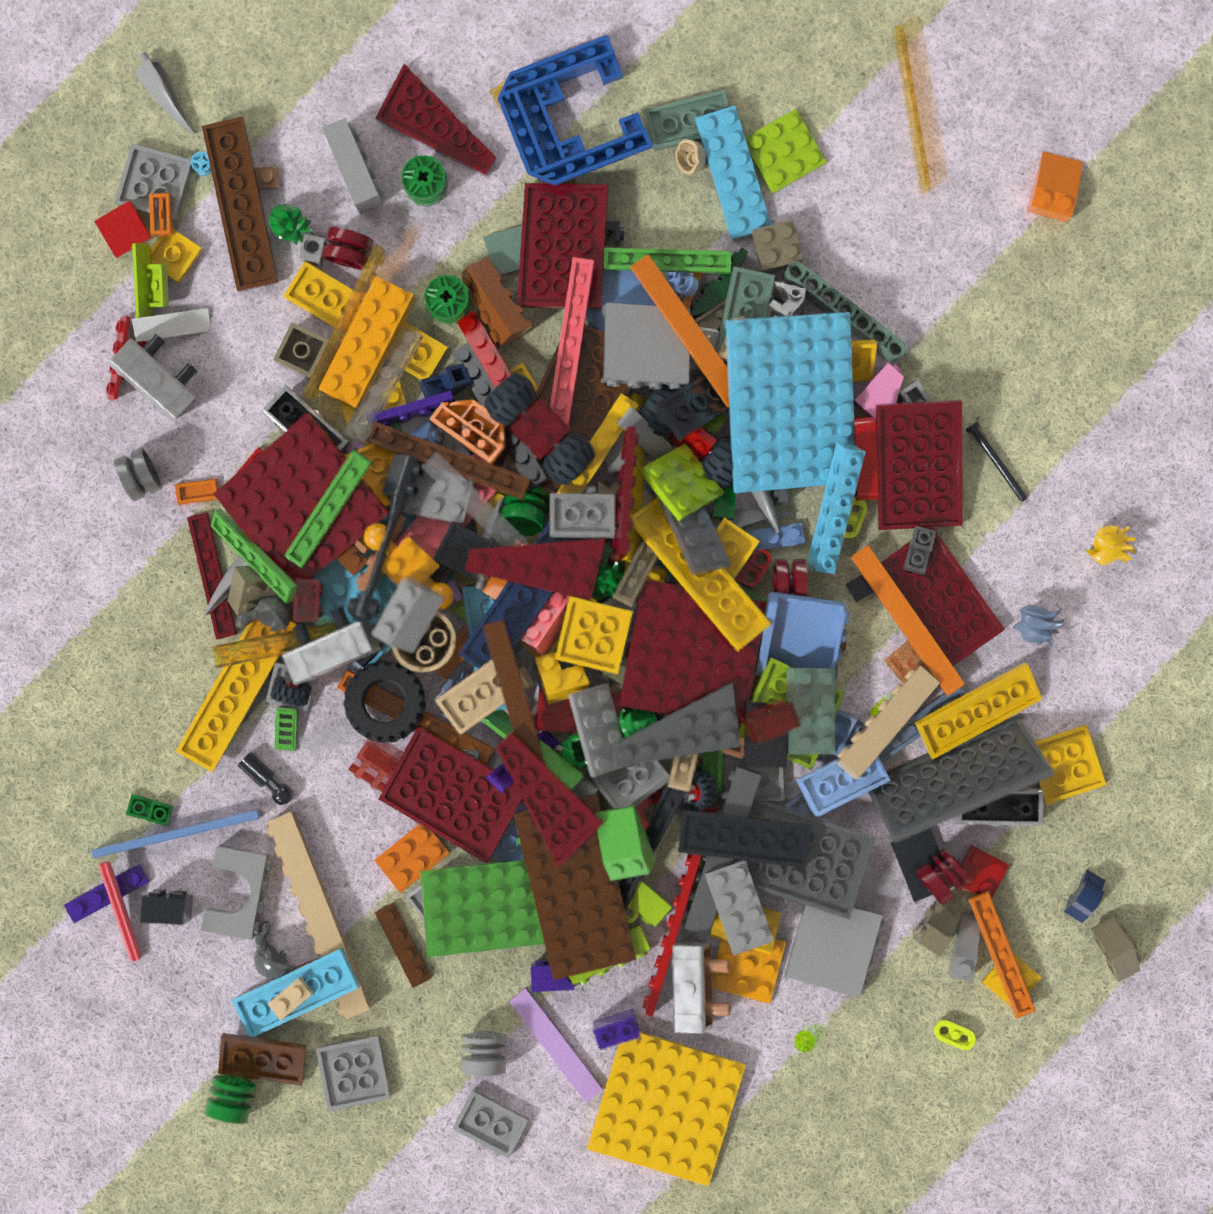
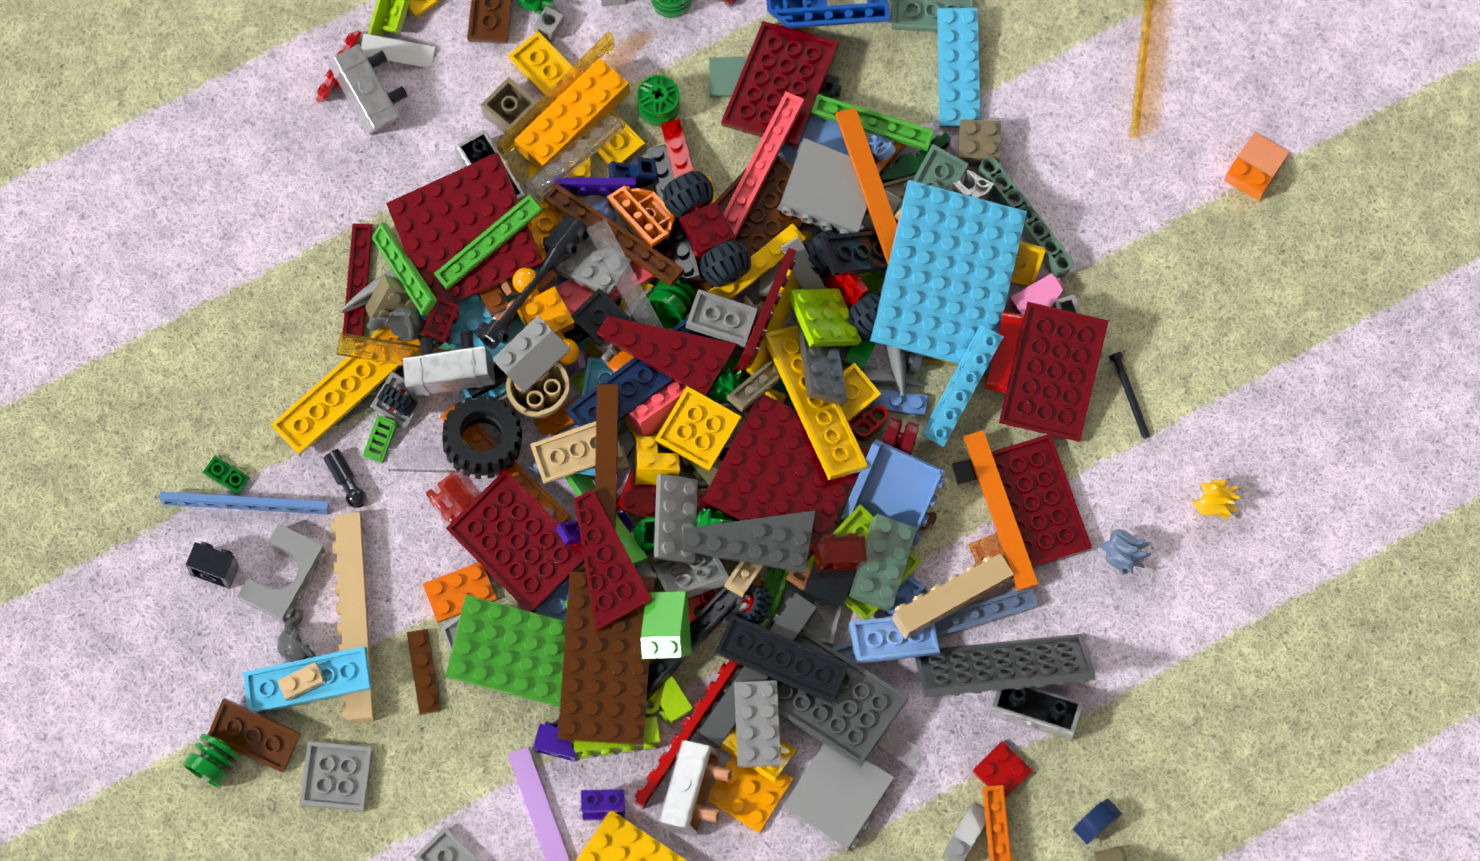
camera: 15 degrees right, 15 degrees down
(98, 897) = (158, 540): dark purple plate -> none
(120, 911) = (167, 557): coral axle -> none
(137, 474) = (321, 169): flat silver wheel -> none
(196, 491) = (369, 204): orange tile -> none
(347, 248) = (580, 28): dark red wheel -> none
(483, 1050) = (469, 786): light grey wheel -> none
(495, 303) = (701, 117): dark orange wedge -> none
(695, 158) = (927, 45): tan helmet -> none
(784, 151) = (1012, 63): lime plate -> none
(856, 519) = (977, 406): neon yellow plate -> none
(911, 855) = (947, 745): black tile -> none
(919, 550) = (1031, 450): flat silver slope -> none
(935, 929) = (941, 806): dark tan brick -> none
(943, 877) = (967, 753): dark red wheel -> none
(978, 710) = (1044, 614): yellow plate -> none
(1073, 764) = (1116, 693): yellow plate -> none

